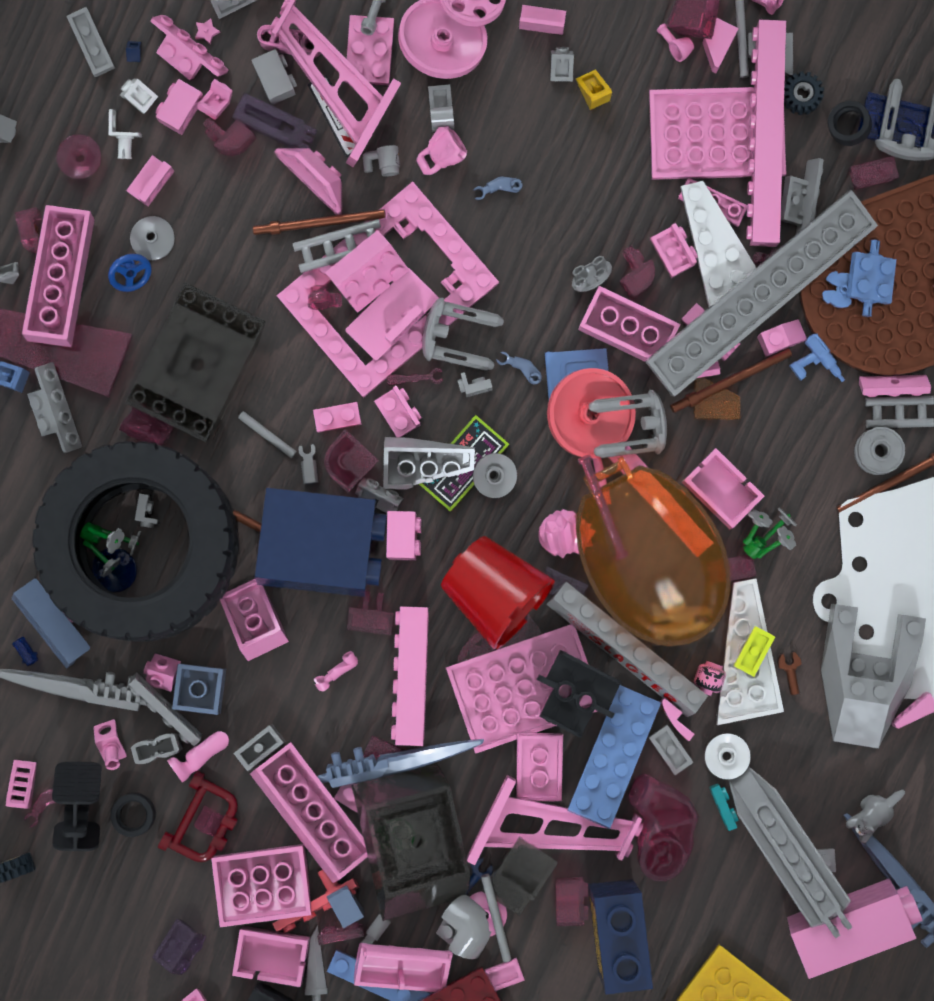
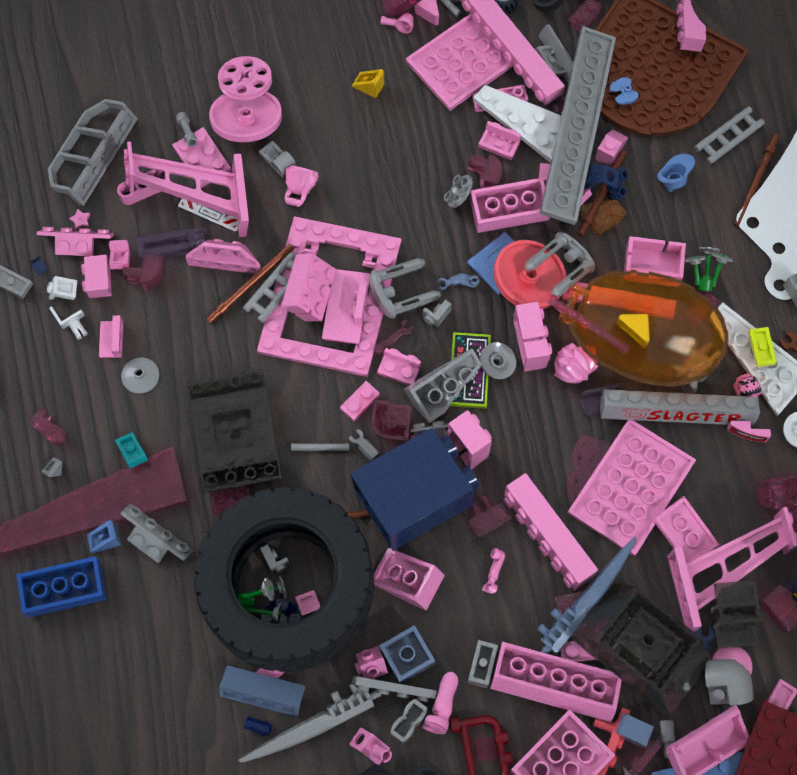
camera: 40 degrees left, 15 degrees down
(58, 276) = (92, 441): bright pink brick -> none
(74, 147) = (45, 348): clear pink dish -> none
(89, 310) = (131, 450): none -> teal plate
(126, 266) = (138, 404): blue piece -> none
(148, 574) = (308, 603): none -> bright pink plate
(273, 76) = (149, 214): light grey brick -> none
(321, 299) = (290, 329): clear pink piece -> none
(387, 158) = (266, 213): light grey piece -> none
(495, 589) = (560, 428): red cone -> none
(496, 918) = (743, 659): light grey bar -> none
(500, 183) = (354, 178): sand blue arm -> none
(542, 19) = (302, 65): bright pink panel -> none
(543, 477) = (532, 336): none -> bright pink piece
(562, 64) = (336, 81): light grey bracket -> none
(583, 681) = (669, 444): black piece -> none
(614, 757) = (730, 485): medium blue plate -> none
(649, 543) = (635, 326): none -> yellow slope
(670, 749) = (762, 454): light grey plate -> none
(736, 362) = (598, 174): none -> dark blue piece
(819, 353) = (643, 139): medium blue piece -> none
(822, 412) = (676, 171): none -> medium blue piece
(871, 278) = (638, 70): medium blue plate -> none
(890, 442) = (734, 160): light grey wheel -> none
(894, 385) = (706, 125): bright pink tile -> none

